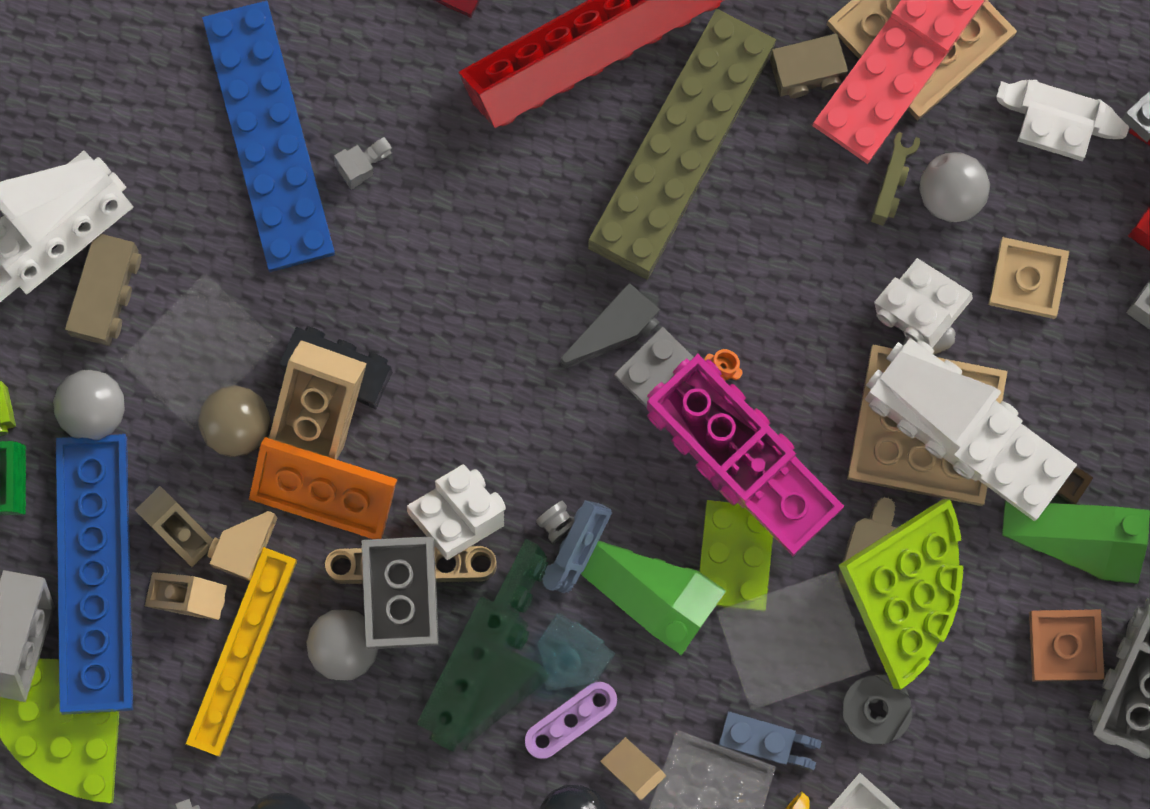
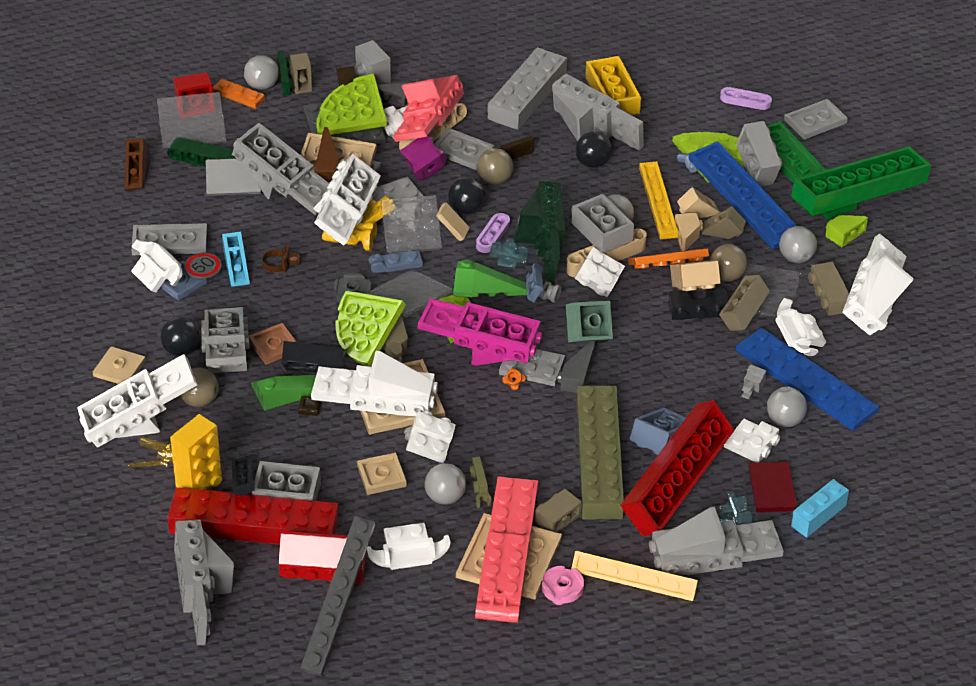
camera: 155 degrees right, 35 degrees down
(124, 726) = (684, 158): none -> sand blue arm
(216, 224) = (799, 329): none -> white plate
(269, 315) = (744, 303): none -> dark tan brick
(350, 72) = (786, 406): none -> light grey piece
(432, 54) = (753, 440): none -> white plate
(551, 394) = (589, 321): none -> sand green brick
(558, 138) = (655, 429): none -> sand blue slope
(1029, 559) = (309, 357): none -> black wedge

